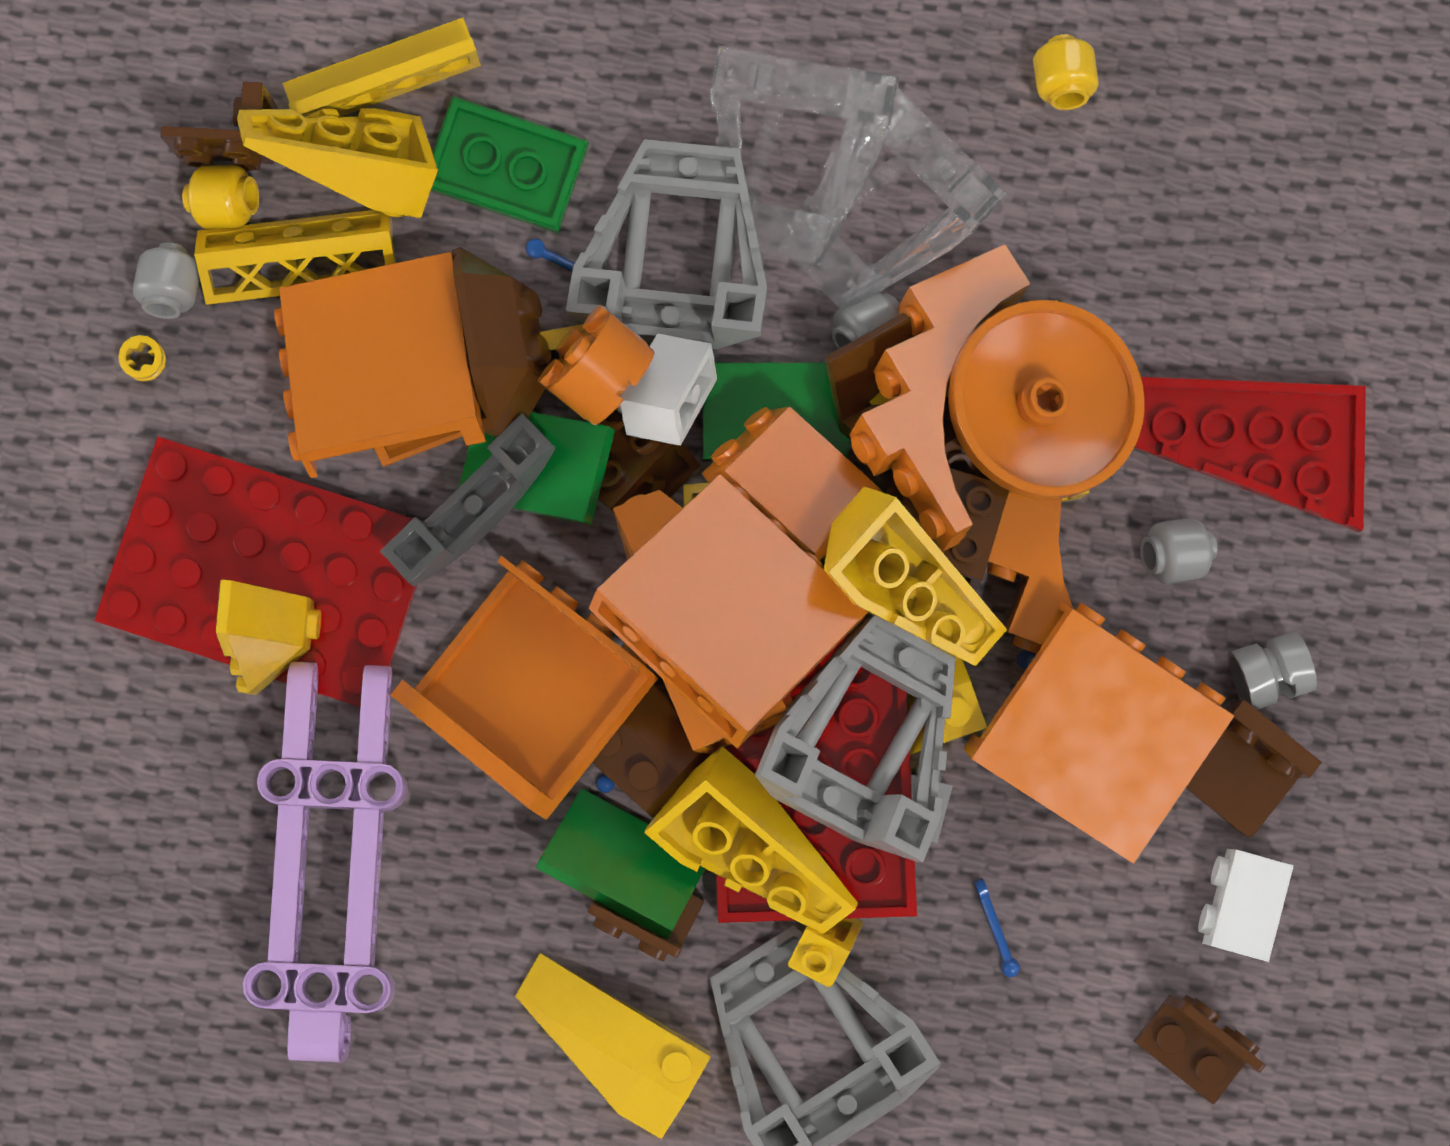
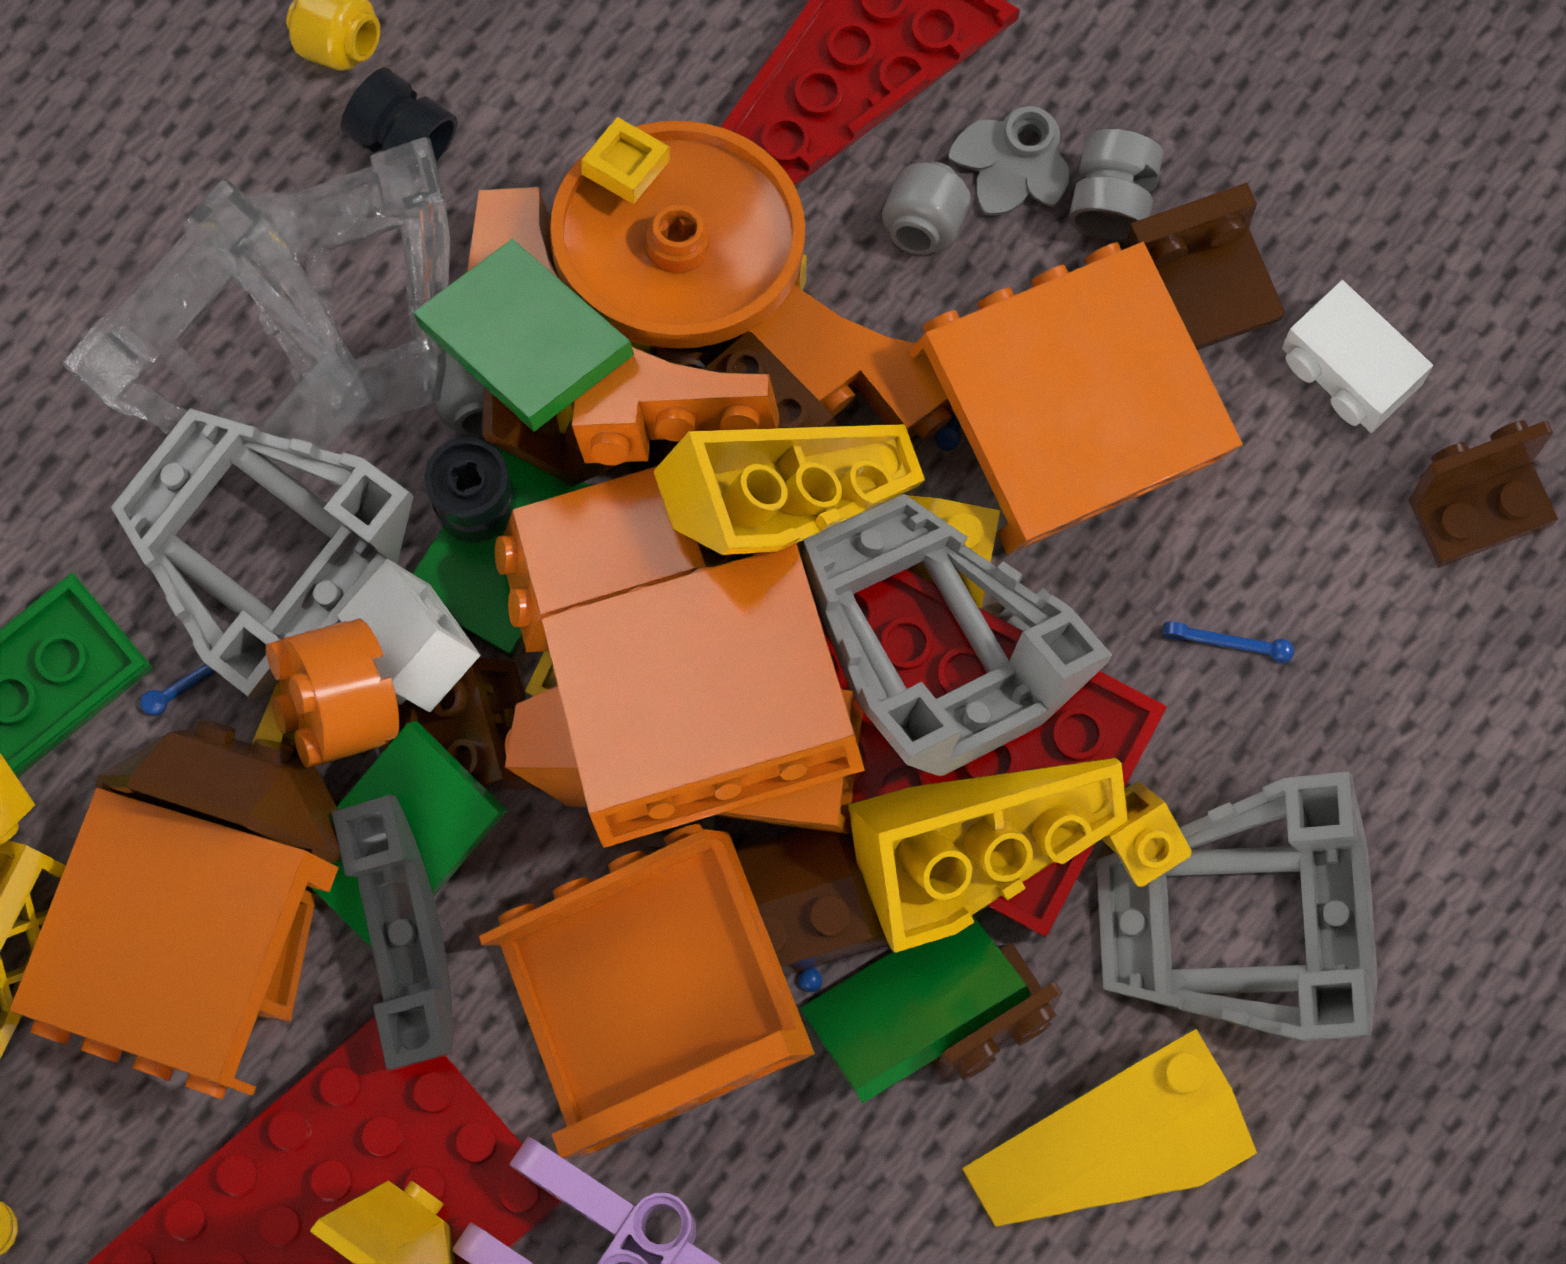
camera: 50 degrees left, 10 degrees down
(792, 367) = (470, 489): none -> black wheel
(909, 342) = (523, 334): none -> green tile
(1022, 152) = (388, 114): none -> black wheel
(1075, 334) = (625, 160): none -> yellow tile
(1244, 589) = (1008, 167): none -> light grey plate

